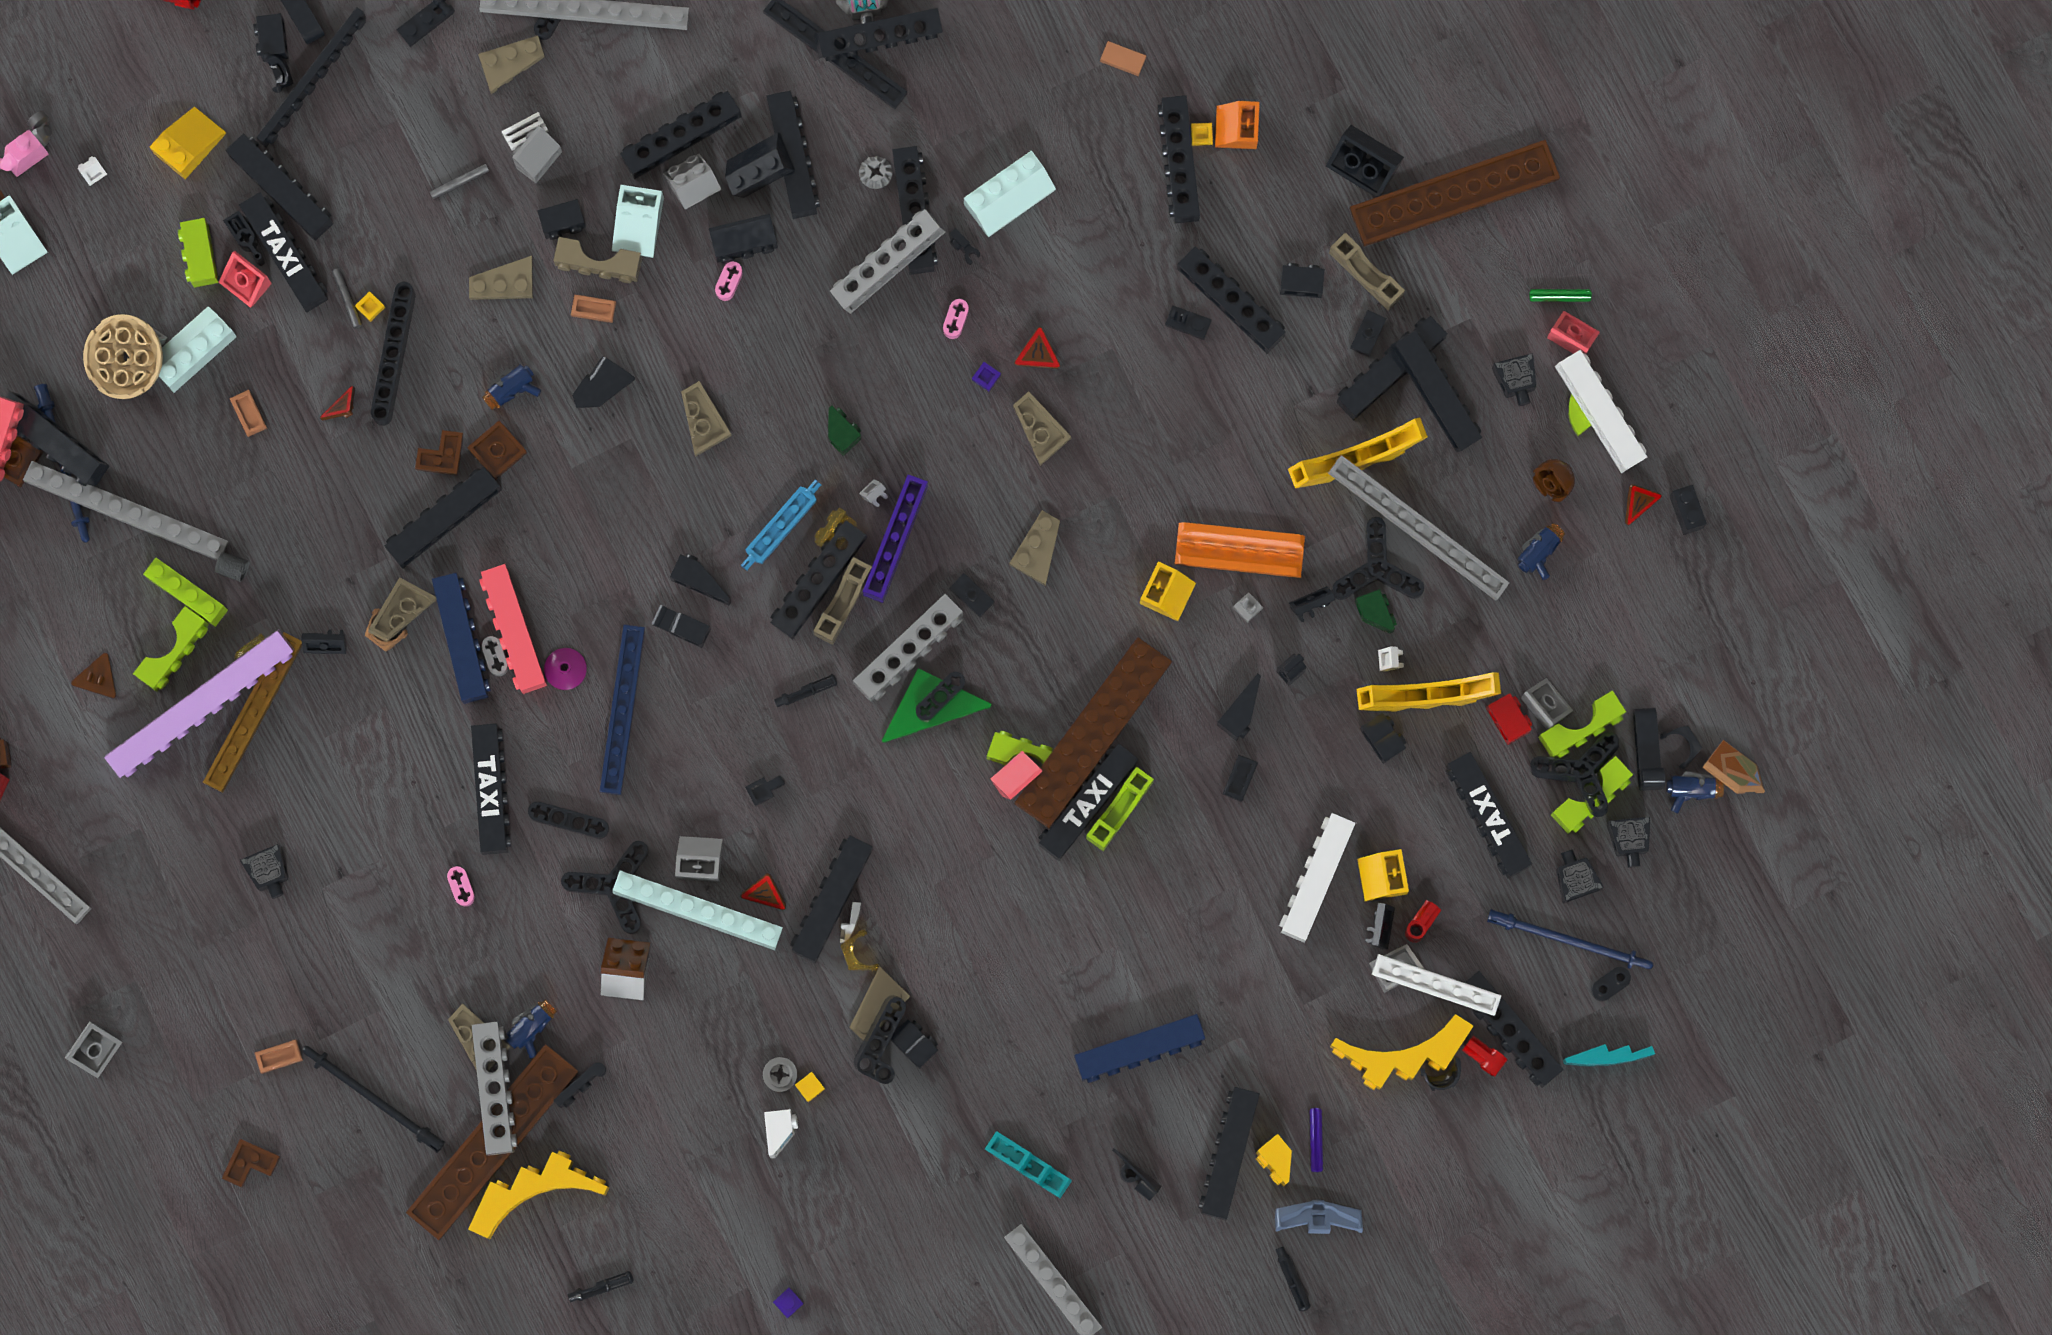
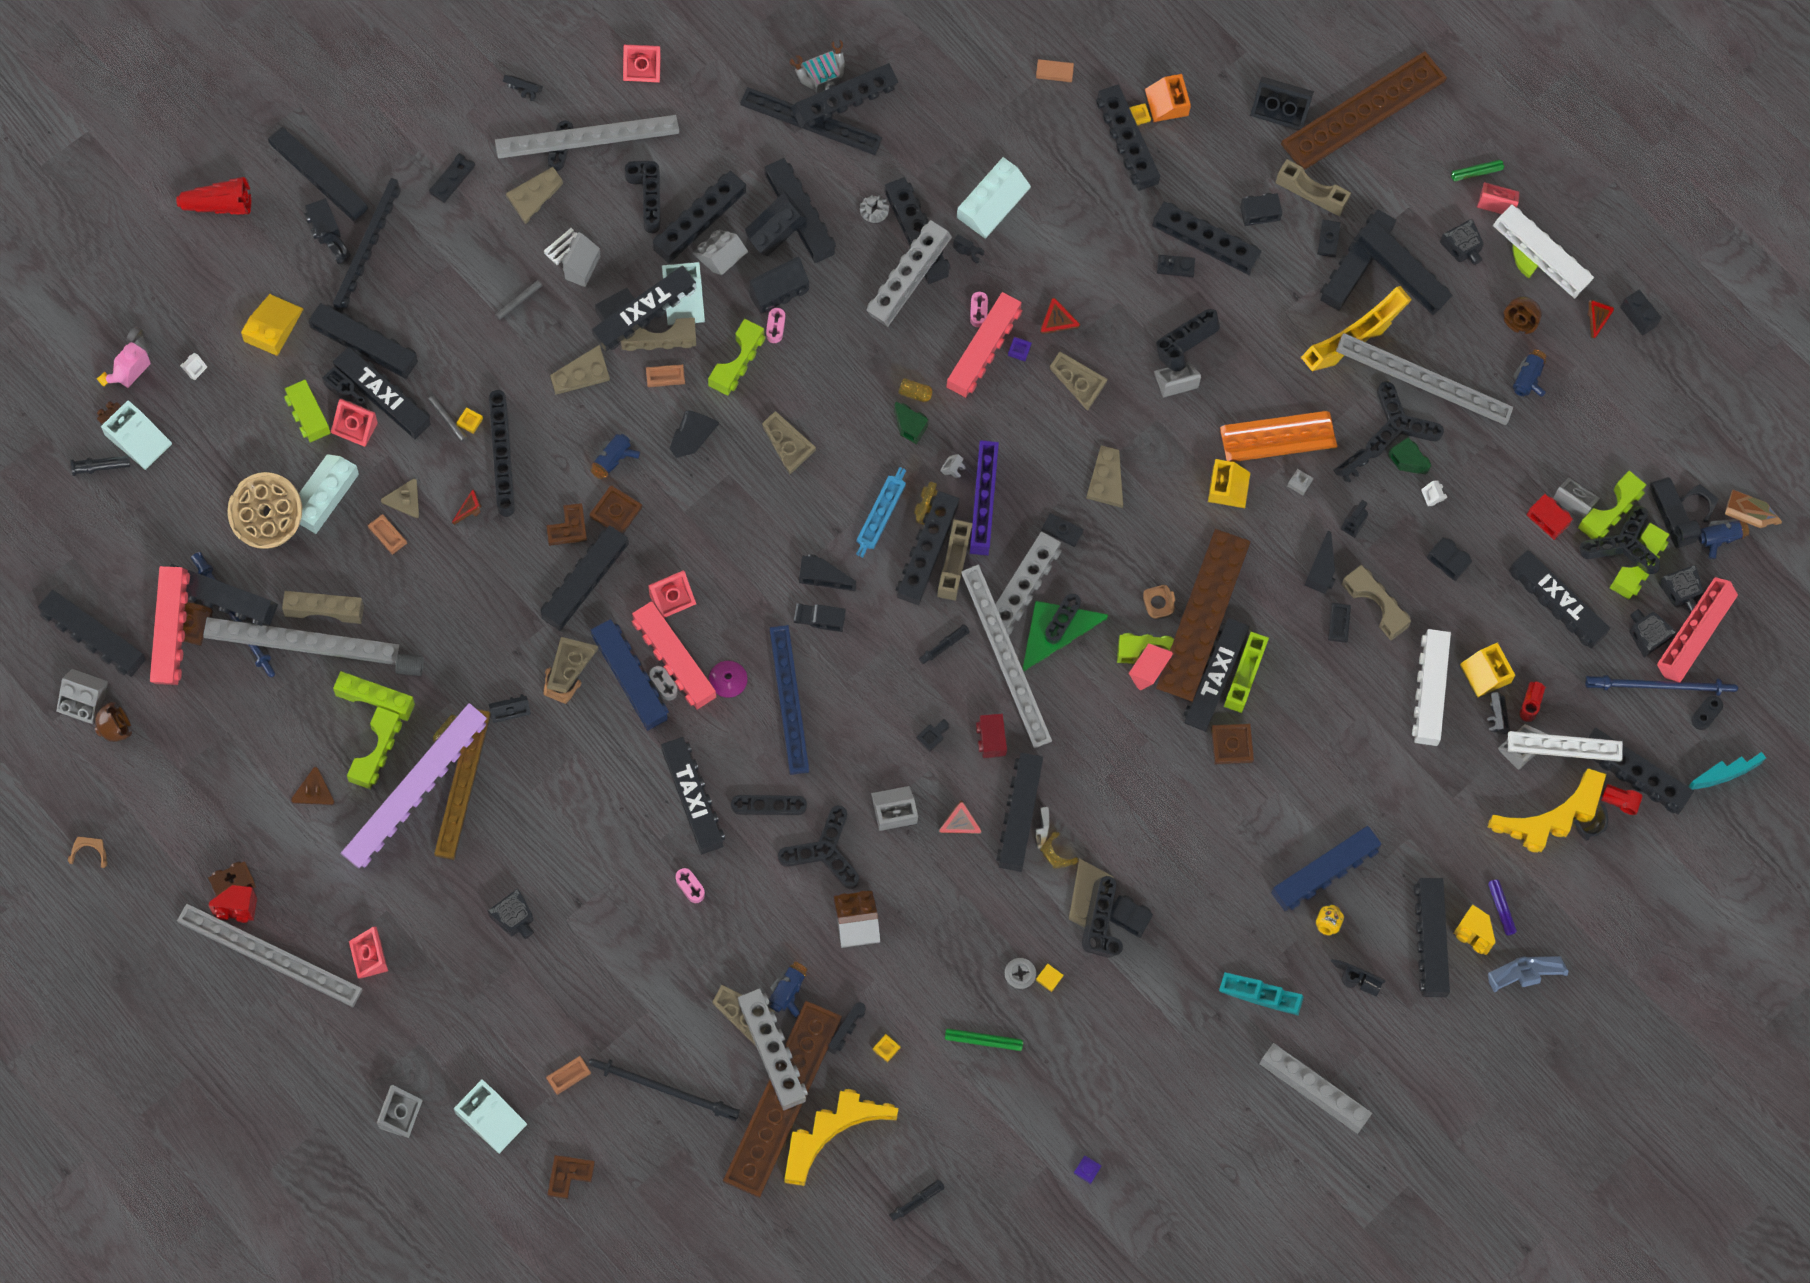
camera: 20 degrees left, 10 degrees down
(107, 872) = (368, 953): none -> coral slope
(150, 475) = (340, 607): none -> dark tan arch
(184, 1080) = (490, 1116): none -> light aqua slope
(277, 377) = (404, 499): none -> dark tan piece
(530, 561) = (672, 594): none -> coral slope
(586, 231) = (644, 308): none -> black brick
(616, 1116) = (886, 1048): none -> yellow tile
(631, 97) = (649, 197): none -> black beam
(657, 327) = (725, 376): none -> lime arch
(697, 910) = (907, 850): light aqua brick -> none
(721, 1135) = (984, 1039): none -> green axle
(779, 1130) = (1035, 1017): white slope -> none
(826, 807) = (992, 736): none -> dark red brick
(858, 396) = (915, 390): none -> clear yellow piece
(865, 724) = (1006, 656): none -> light grey plate
(948, 362) = (984, 344): none -> coral brick
(1059, 692) = (1163, 591): none -> medium nougat piece
(1081, 883) = (1232, 744): none -> reddish brown plate
(1125, 1105) = (1329, 920): none -> yellow head
(1148, 454) = (1177, 382): none -> light grey slope
(1172, 410) = (1175, 343): none -> black beam
(1277, 741) = (1362, 584): none -> dark tan arch
(1292, 1280) = (1521, 1031): black piece -> none
(1428, 695) = (1474, 514): yellow arch -> none
(1628, 890) = (1697, 629): none -> coral brick

